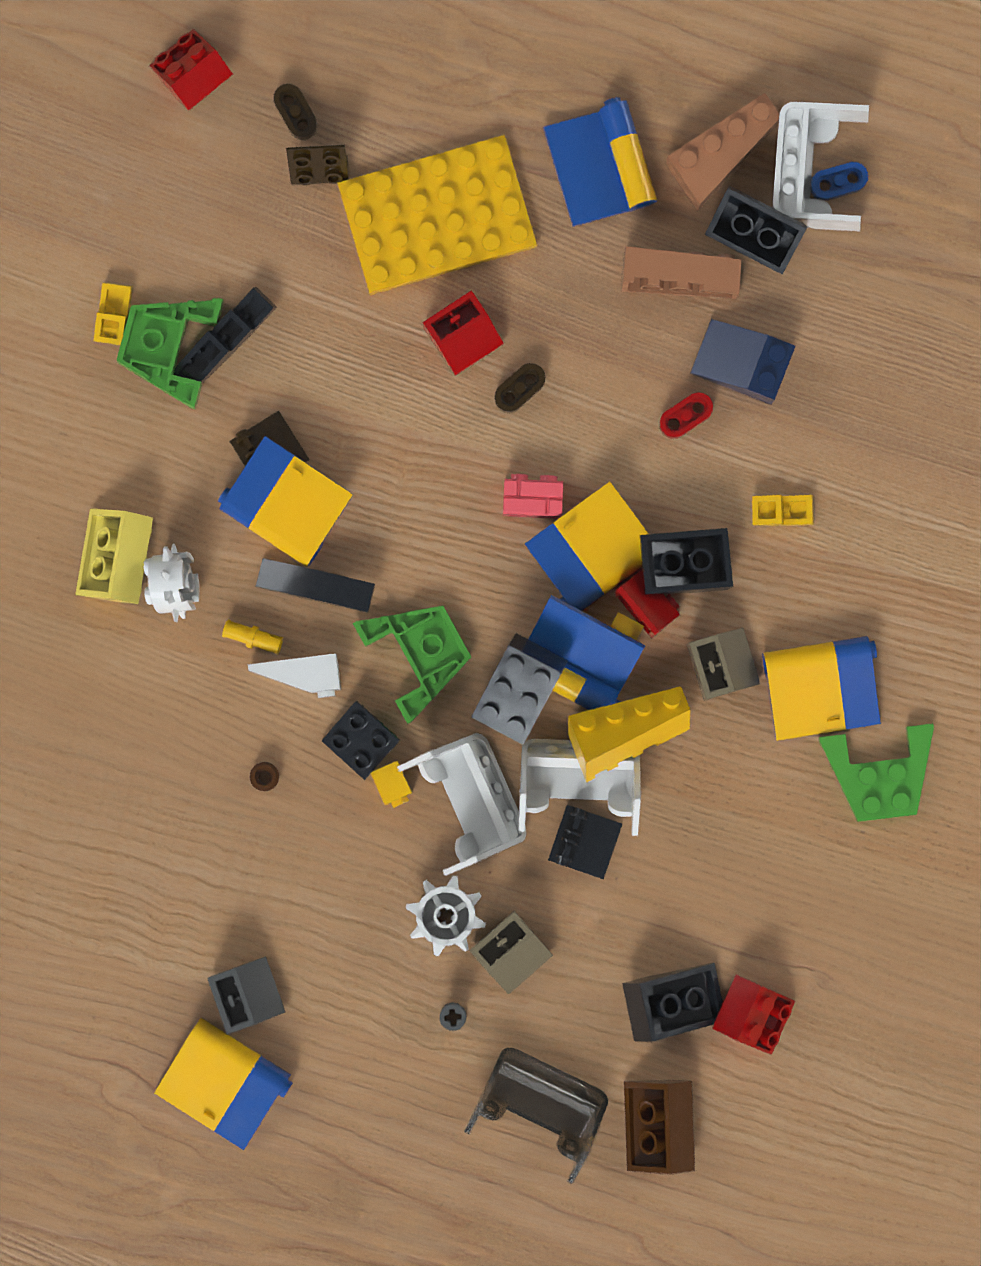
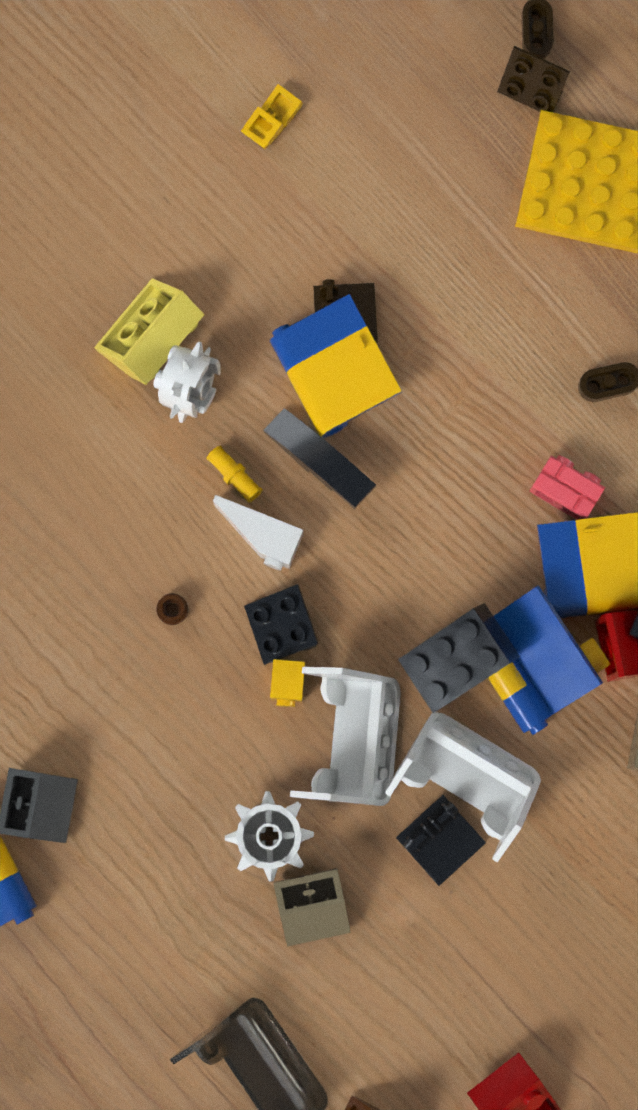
camera: 25 degrees right, 5 degrees down
(154, 342) = (296, 159): bright green wing -> none
(225, 337) = (359, 193): black slope -> none
(429, 646) = (394, 573): bright green wing -> none
(446, 1023) = (212, 941): dark grey bush -> none
(463, 333) = (584, 302): red slope -> none
(626, 728) = (540, 752): yellow wedge -> none
(673, 1002) = (441, 1045): black slope -> none

